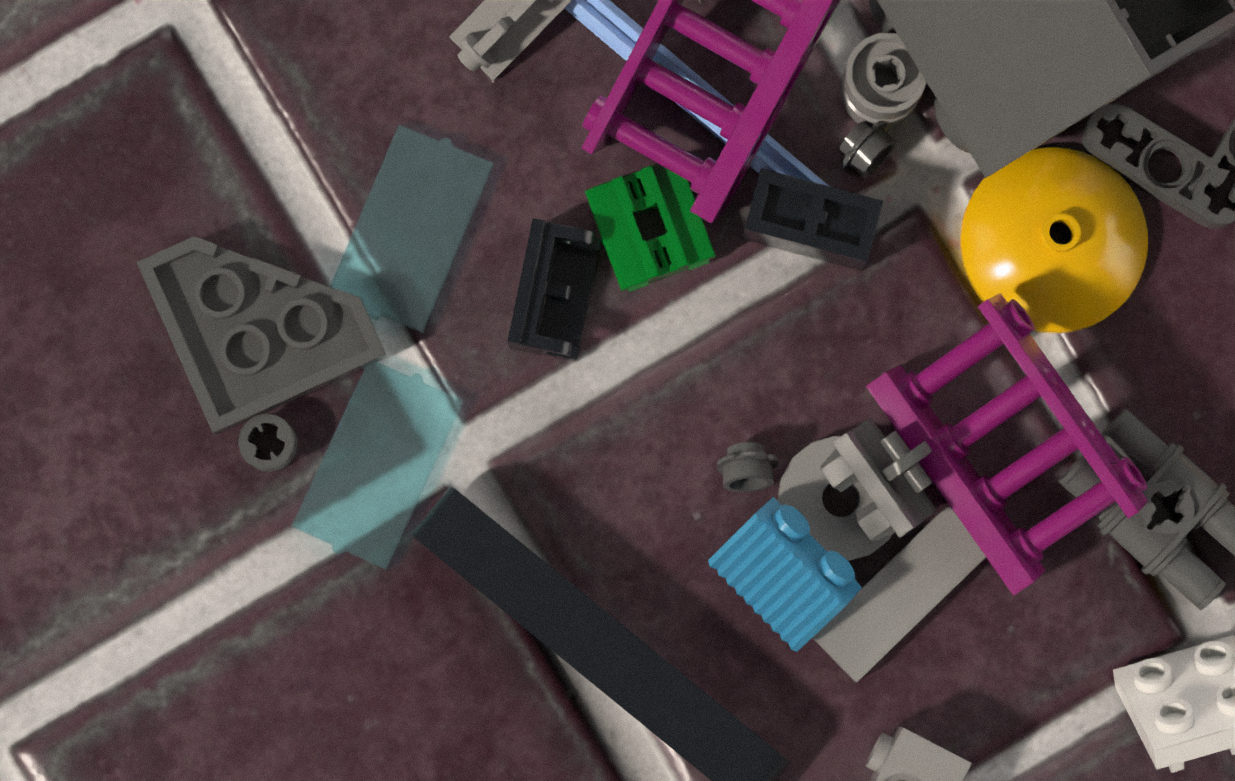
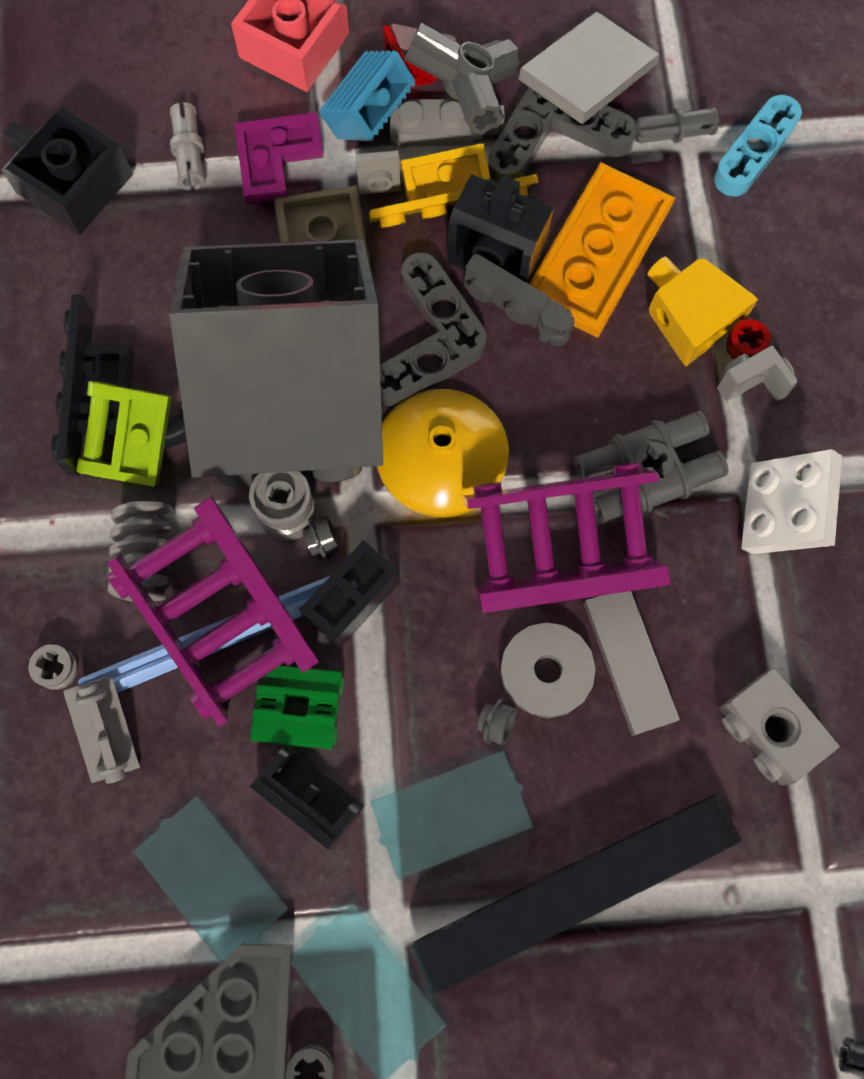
camera: 65 degrees left, 10 degrees down
(615, 465) = (450, 815): none -> clear light blue piece
(786, 573) = (585, 731): dark azure brick -> none
(888, 475) = (549, 626): dark grey hips -> none

